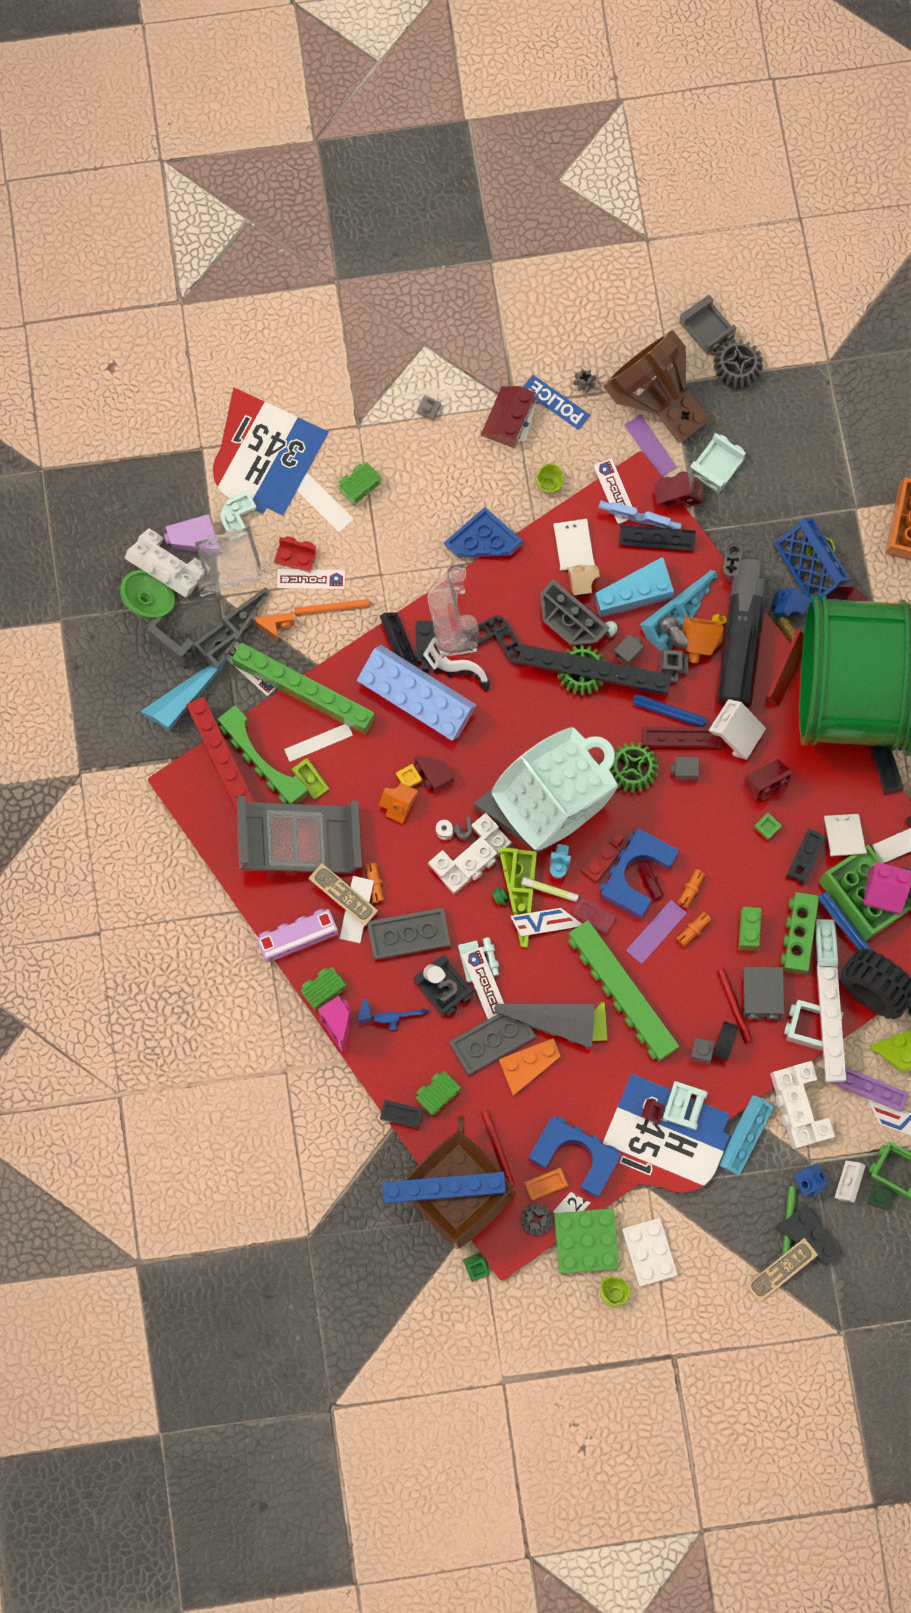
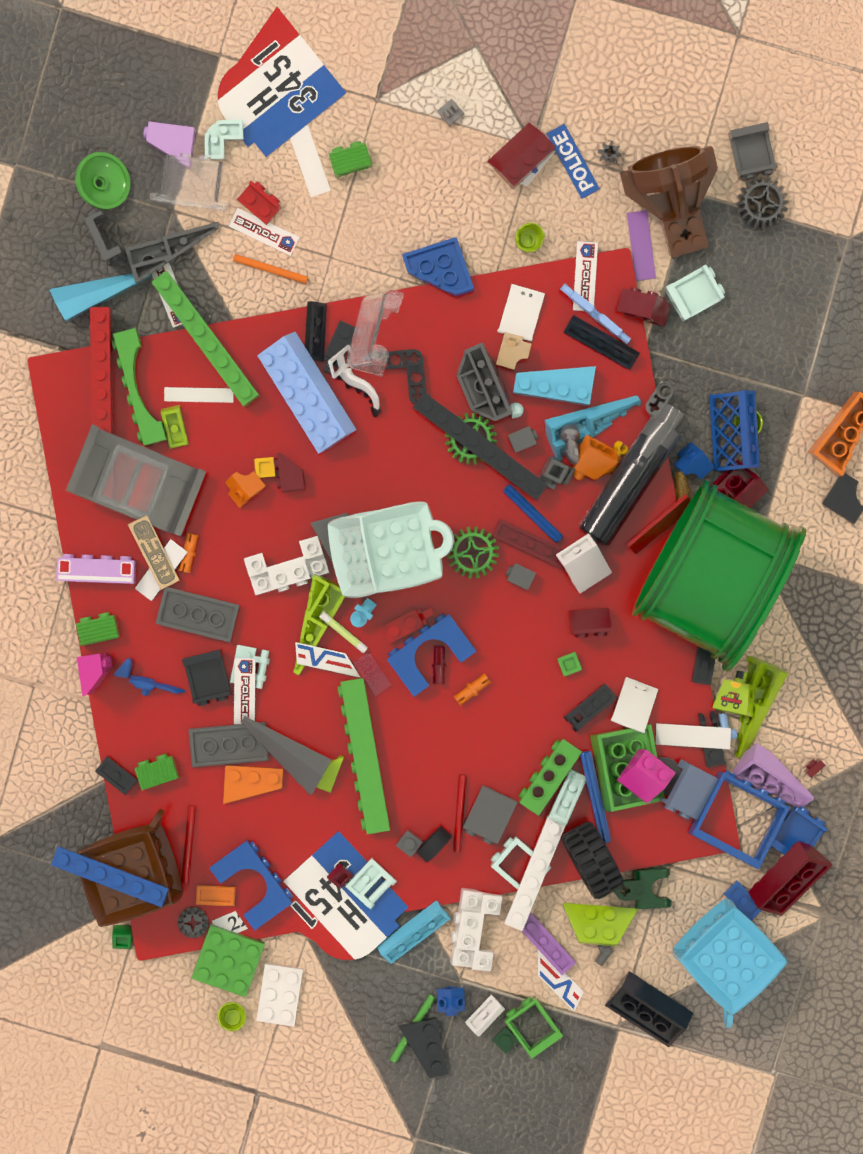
camera: 25 degrees right, 15 degrees up
(163, 565) = (130, 157): white bracket -> none
(269, 623) = (205, 261): orange slope -> none
(436, 975) = (200, 668): leg -> none
(446, 831) = (275, 533): leg -> none
(500, 896) = (296, 617): green plate -> none
(656, 931) = (422, 713): medium lavender sticker -> none
(693, 929) = (456, 727): orange pin -> none
(750, 928) = (505, 751): bright green brick -> none
(781, 1270) = (387, 1064): sticker -> none

